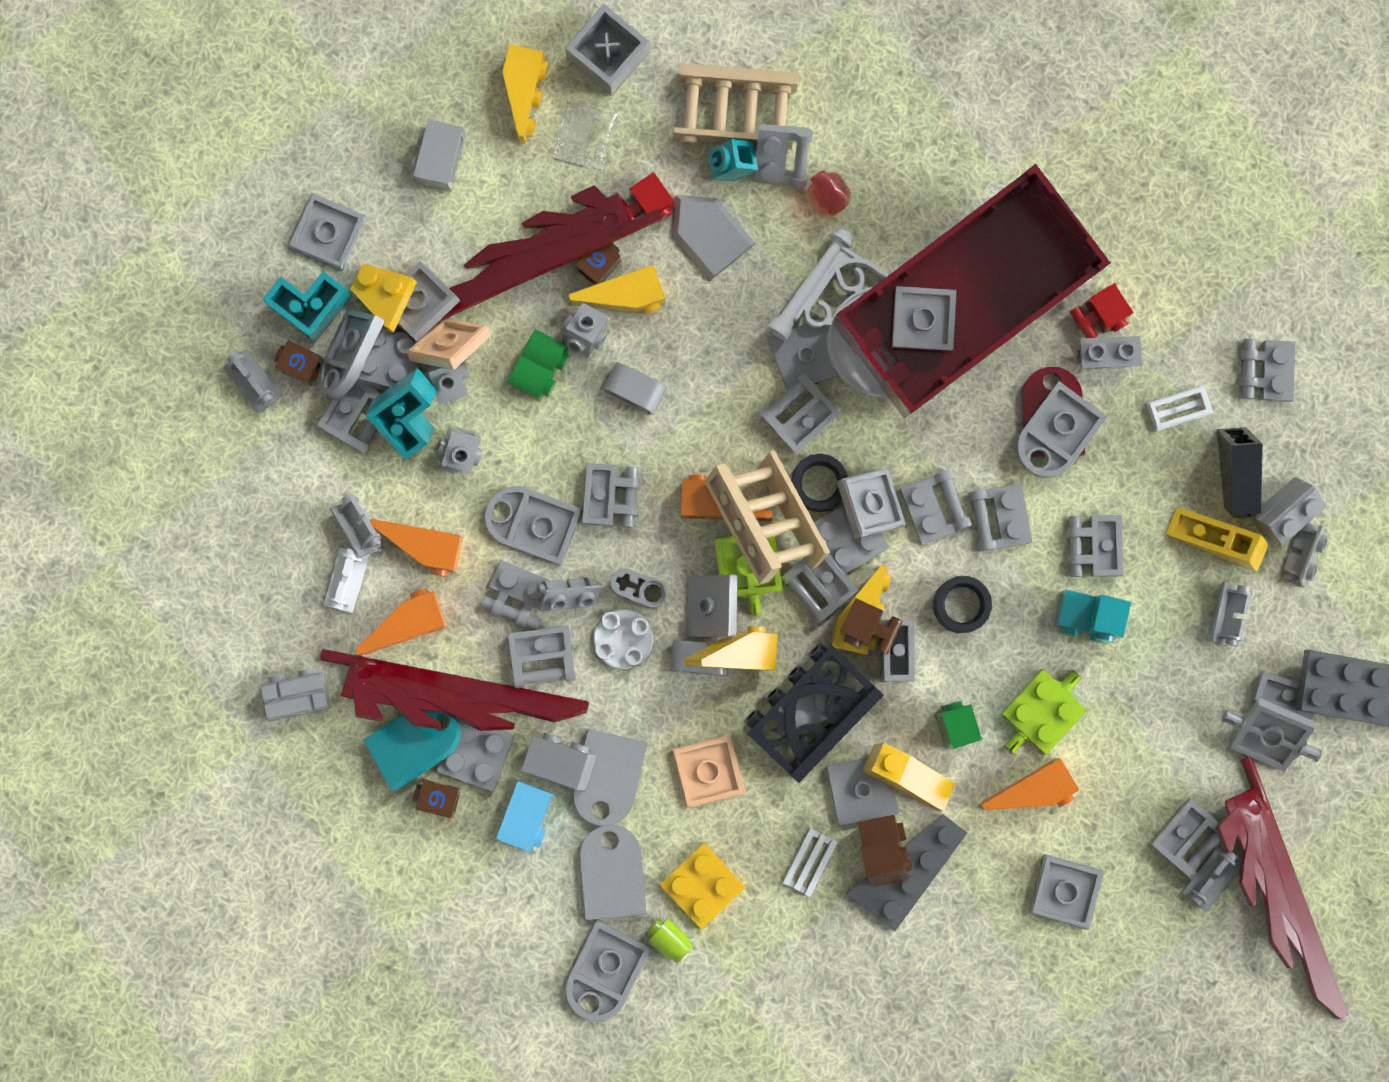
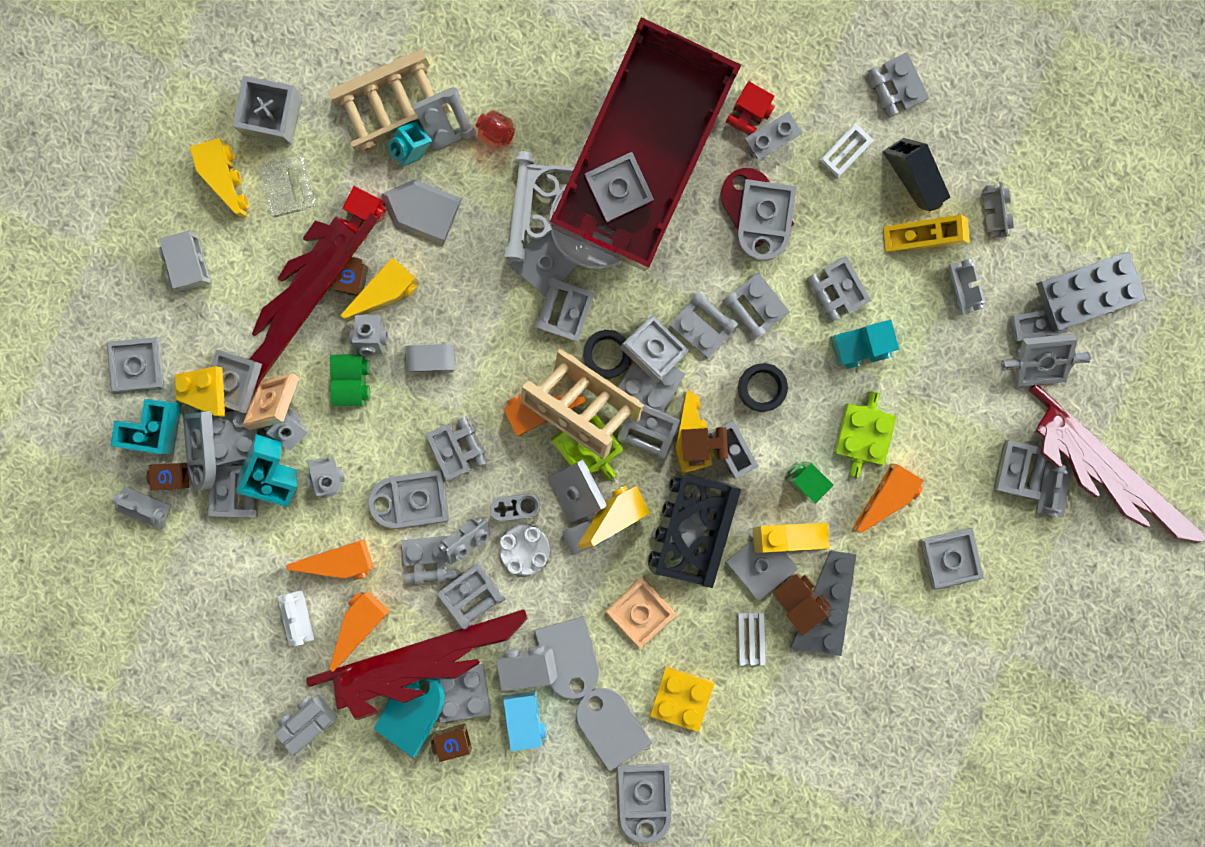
camera: 15 degrees left, 5 degrees up
(357, 527) = (277, 575): light grey hinge -> none
(669, 940) = (679, 752): lime brick -> none
(1288, 511) = (970, 184): light grey brick -> none

